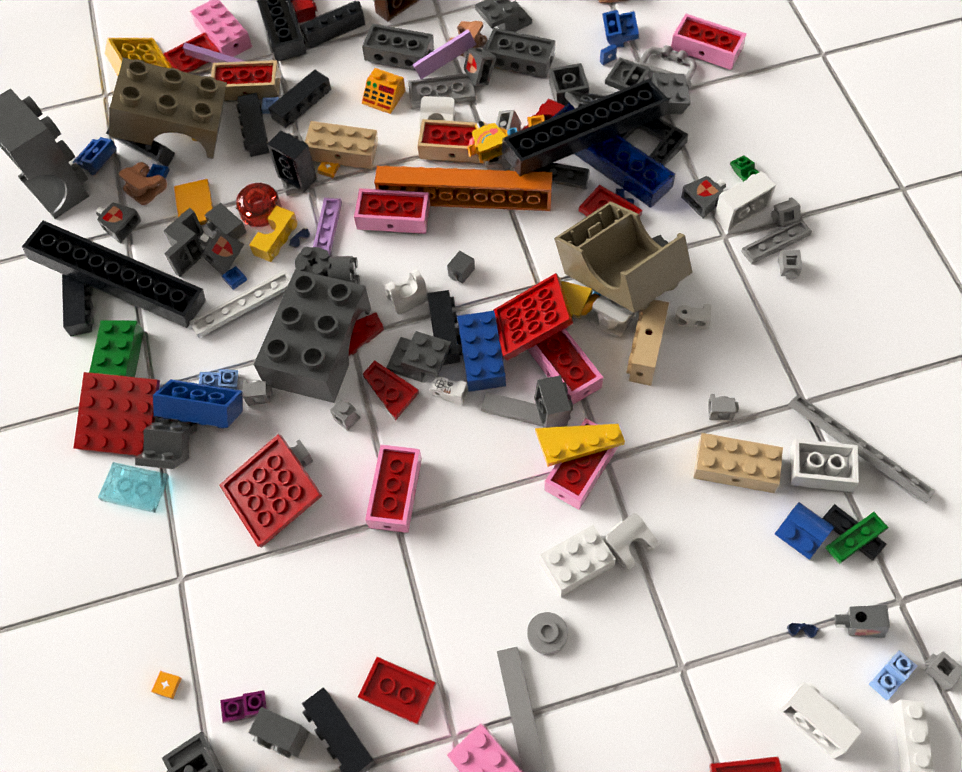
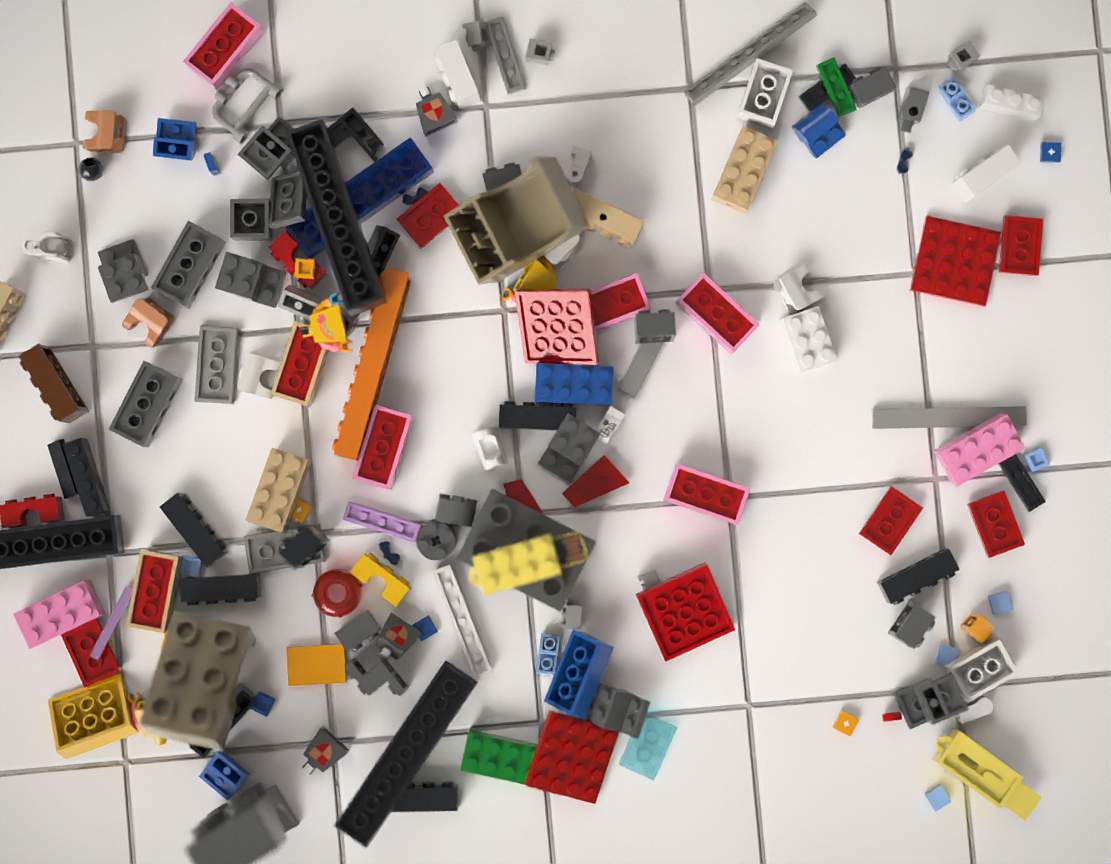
camera: 80 degrees left, 25 degrees up
(140, 187) = (282, 726): nougat piece -> none
(175, 734) = (893, 716): none -> red tile
(243, 706) = (877, 656): magenta slope -> none
(295, 315) = (526, 562): none -> light yellow piece
(344, 414) = (616, 530): light grey brick -> none
(383, 90) = (206, 432): light orange slope -> none
(444, 54) = (177, 352): lavender tile -> none
(461, 267) = (469, 387): dark grey brick -> none
(479, 65) = (199, 316): dark grey torso -> none
(518, 90) = (250, 279): none -> dark grey bracket
(547, 633) = (865, 381): light grey piece -> none
(573, 442) = (702, 319): yellow wing -> none
(675, 89) = (292, 110): dark grey brick -> none
(708, 711) = (955, 261): none -> red plate
(722, 407) = (684, 167): light grey brick -> none
(743, 167) = (411, 58): green slope -> none
(871, 574) = (872, 87): none -> dark grey brick

